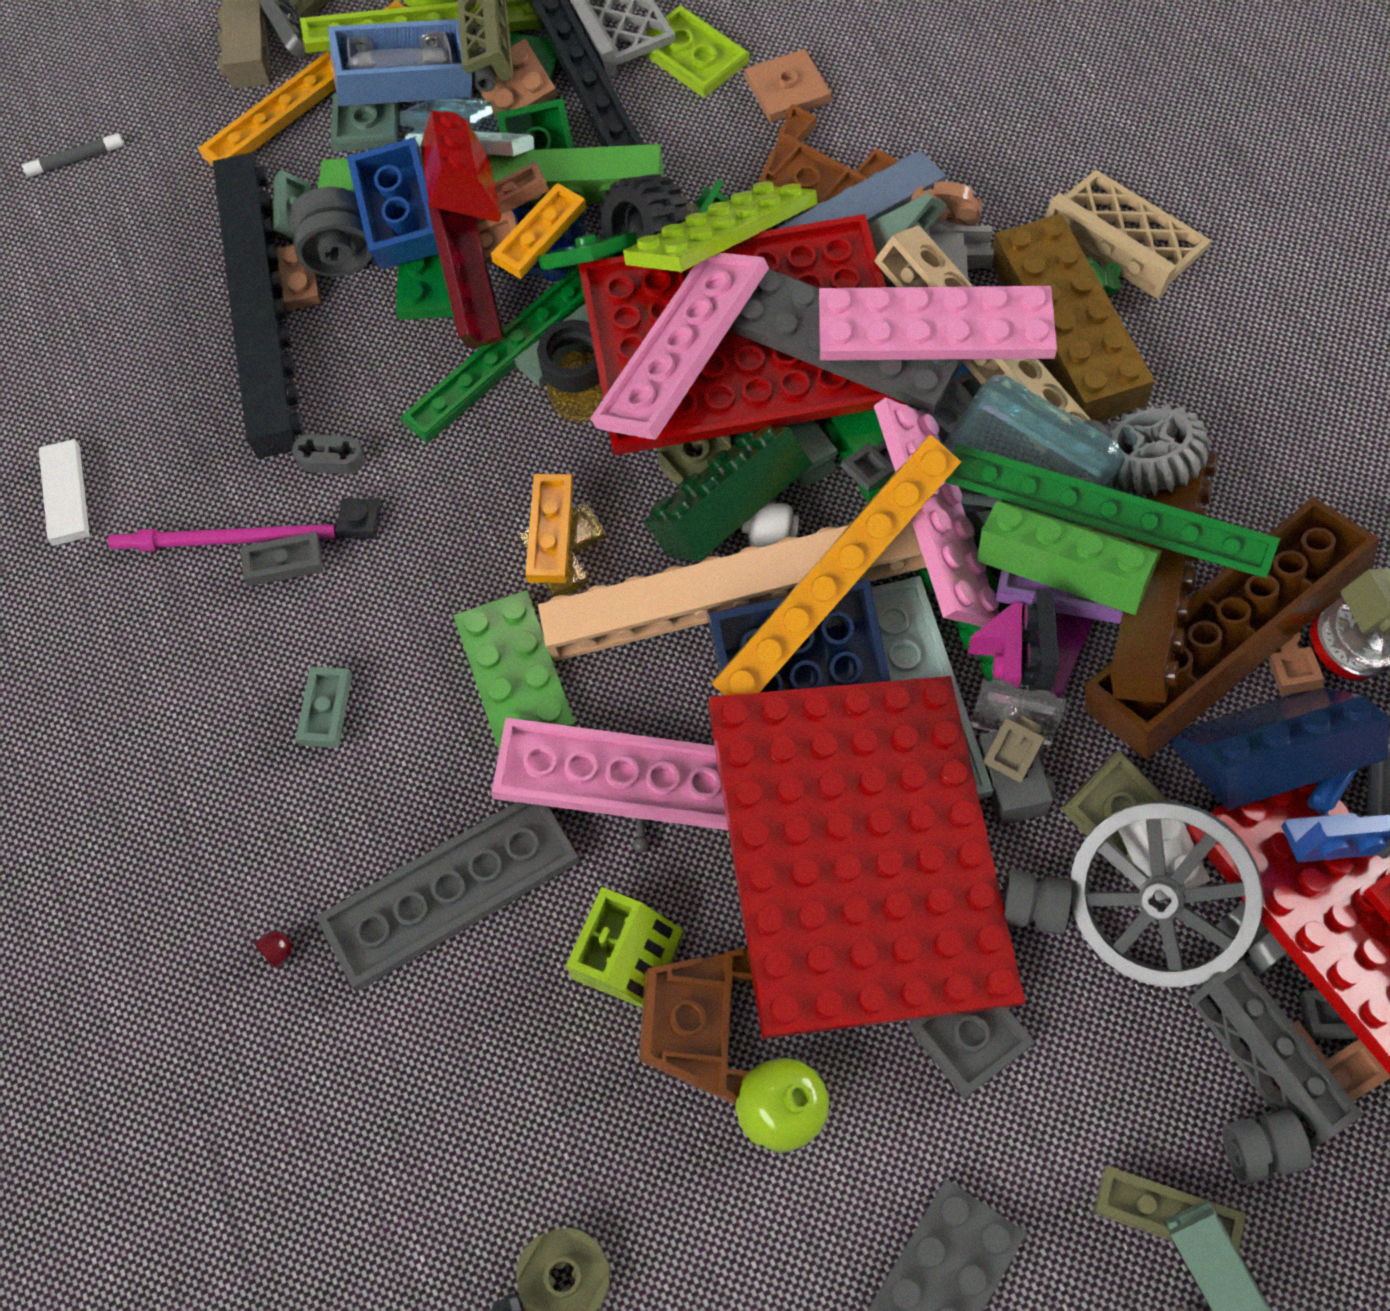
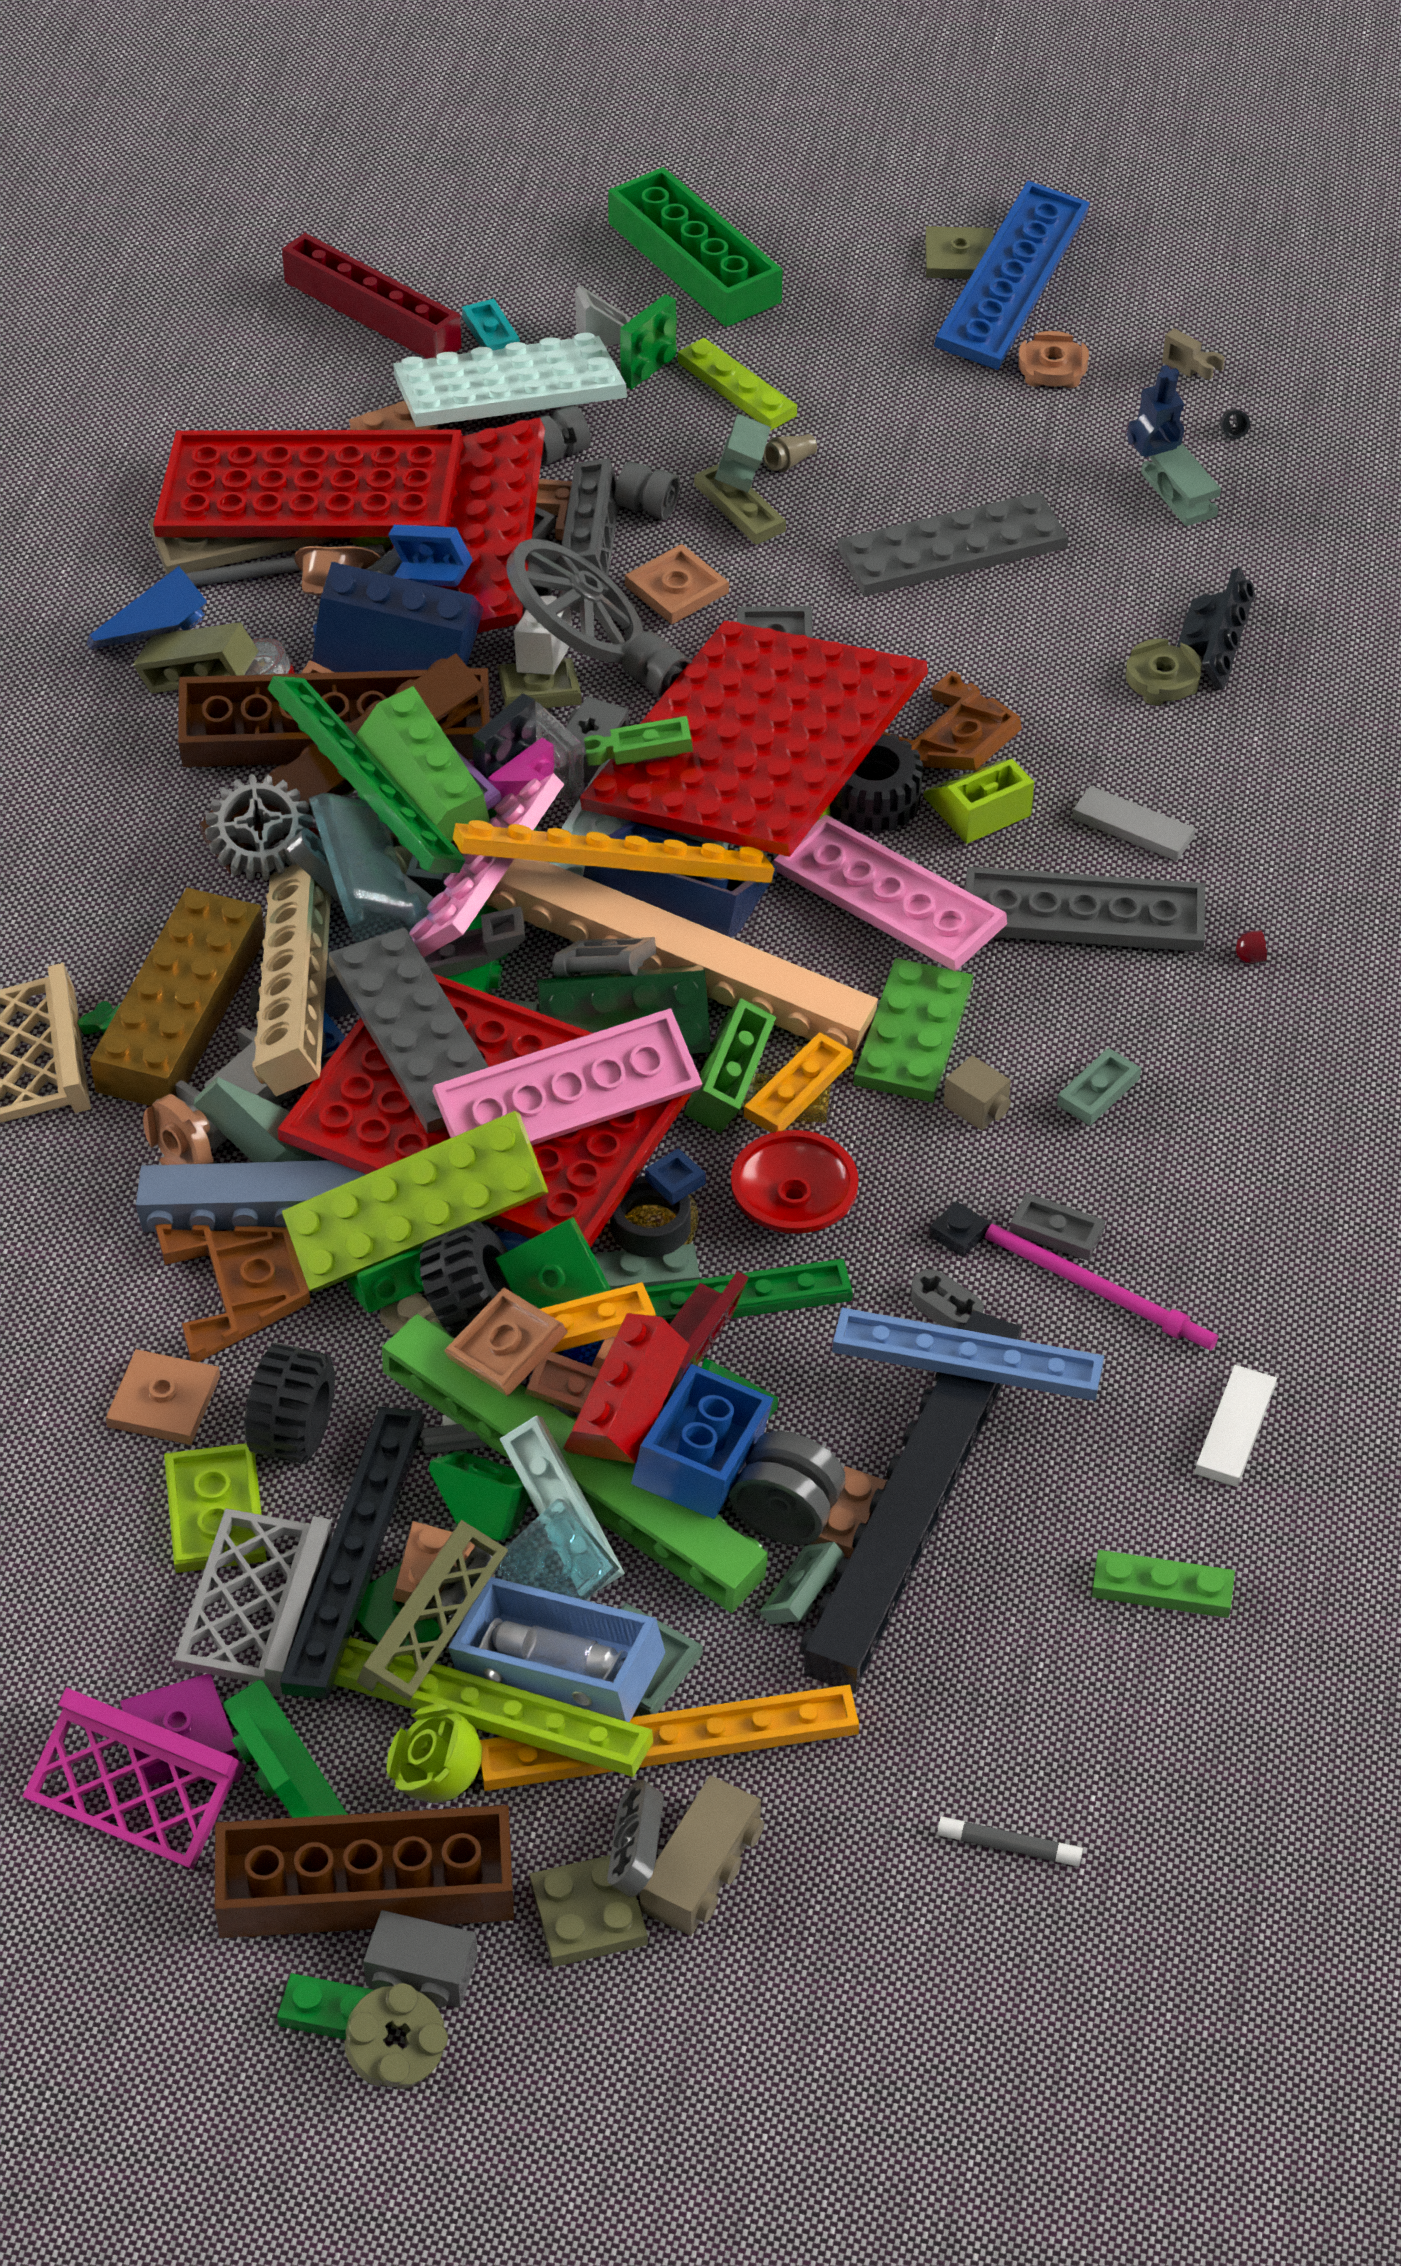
camera: 150 degrees left, 15 degrees down
(58, 354) = (1163, 1583): none -> bright green plate
(262, 379) = (968, 1354): none -> medium blue plate
(415, 631) = (977, 1093): none -> dark tan brick
(470, 1036) = (1133, 823): none -> light grey tile
(492, 435) = (794, 1181): none -> red dish
(562, 360) = (675, 1176): none -> dark blue plate
(571, 172) = (505, 1341): none -> nougat plate
(618, 518) = (730, 1065): none -> bright green brick
(688, 89) = (289, 1403): none -> black tyre
(695, 914) = (882, 788): none -> black tyre
(777, 516) = (604, 956): none -> dark grey plate
(782, 1104) = (948, 656): lime cylinder -> none
(936, 744) = (640, 742): none -> bright green plate
(937, 323) = (341, 968): bright pink plate -> none
(1015, 747) = (586, 718): dark tan bracket -> none
(1122, 1039) = (676, 584): none -> nougat plate

